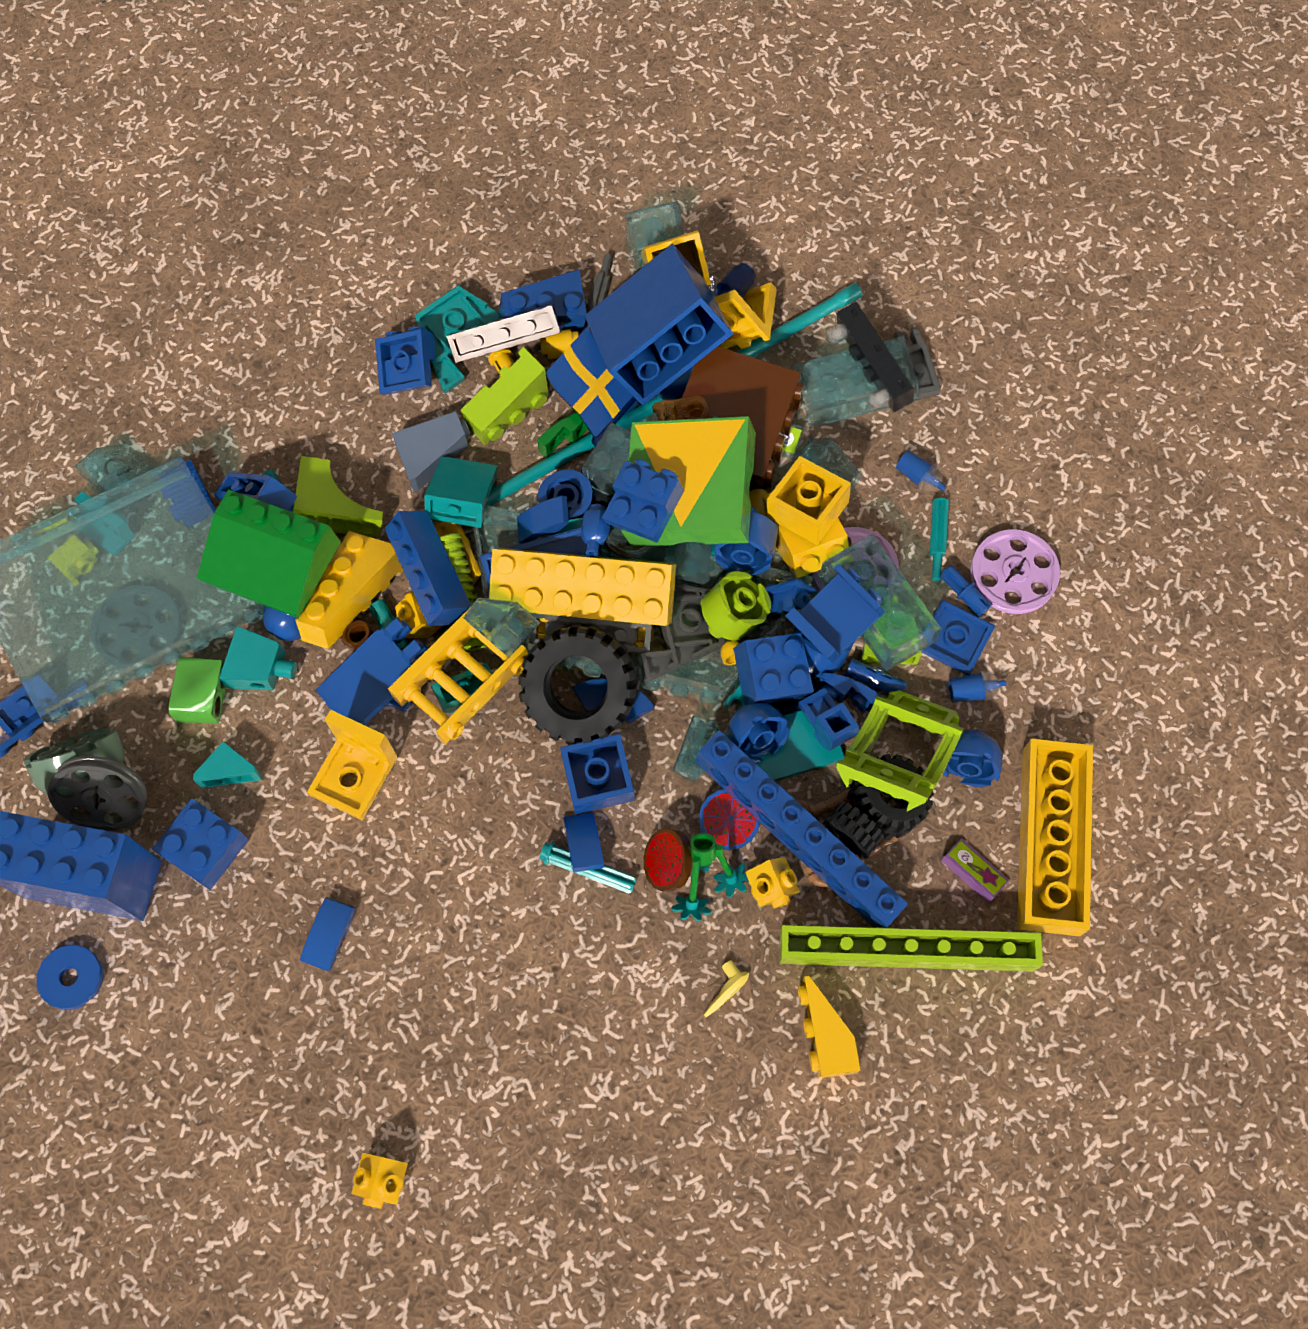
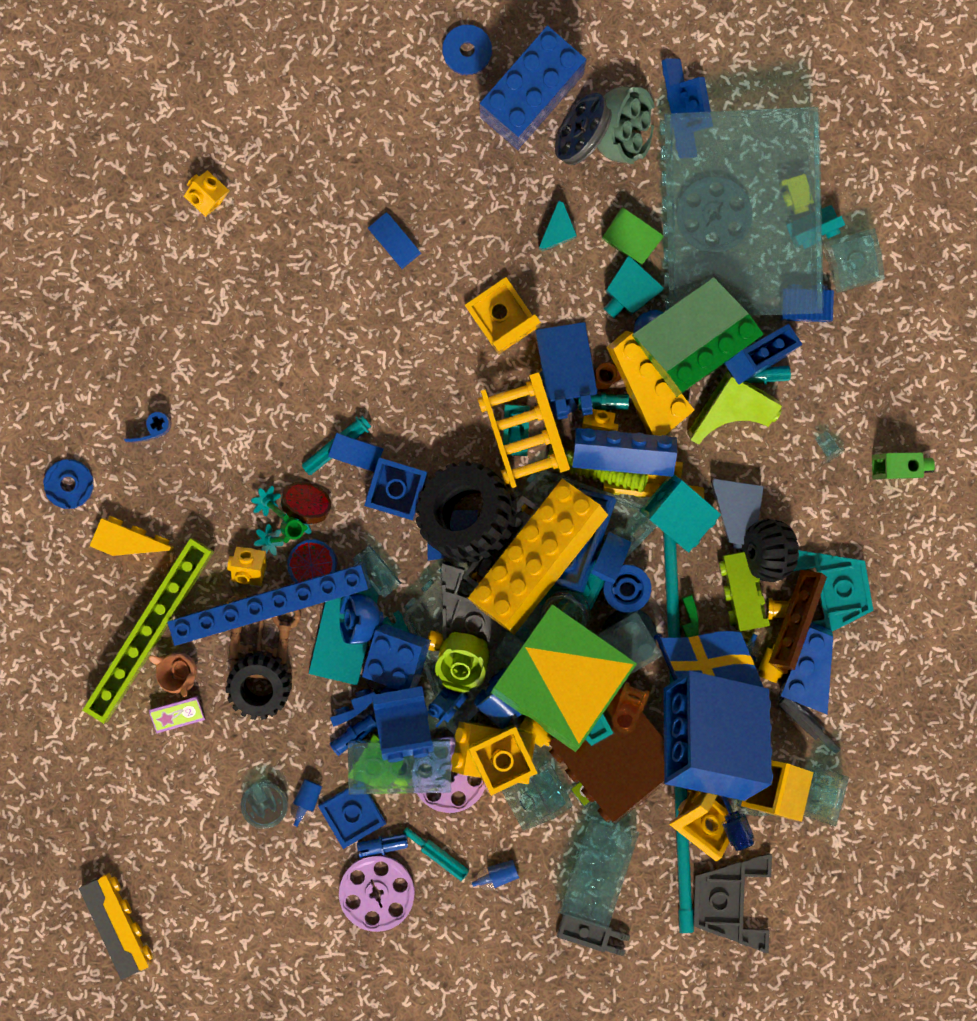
camera: 120 degrees right, 20 degrees up
(200, 844) = (509, 183): blue brick -> none
(300, 322) = (901, 466): none -> bright green torso
(322, 404) = (829, 446): none -> clear light blue piece
(405, 360) = (827, 531): blue plate -> none
(450, 391) = (771, 550): none -> black wheel
(502, 623) = (537, 482): clear light blue slope -> none
(594, 529) = (570, 588): blue plant -> none
(643, 500) = (562, 632): blue plate -> none
(689, 1073) = (155, 433): none -> blue panel
(732, 986) = (195, 490): light yellow bar -> none
(786, 1149) = (83, 484): none -> blue tile
(809, 276) = (721, 901): none -> dark grey wing
(830, 722) = (338, 676): blue brick -> none
(854, 829) = (248, 642): black tyre -> none
(874, 356) = (597, 890): black piece -> none
(890, 778) = (265, 685): lime wedge -> none
(925, 889) = (183, 669): none -> nougat hair
(976, 759) = (253, 763): blue cylinder -> none
(1007, 722) = (264, 804): none -> clear light blue head
(1055, 838) = (164, 782): yellow brick -> none
(1233, 802) = (115, 925): none -> piece

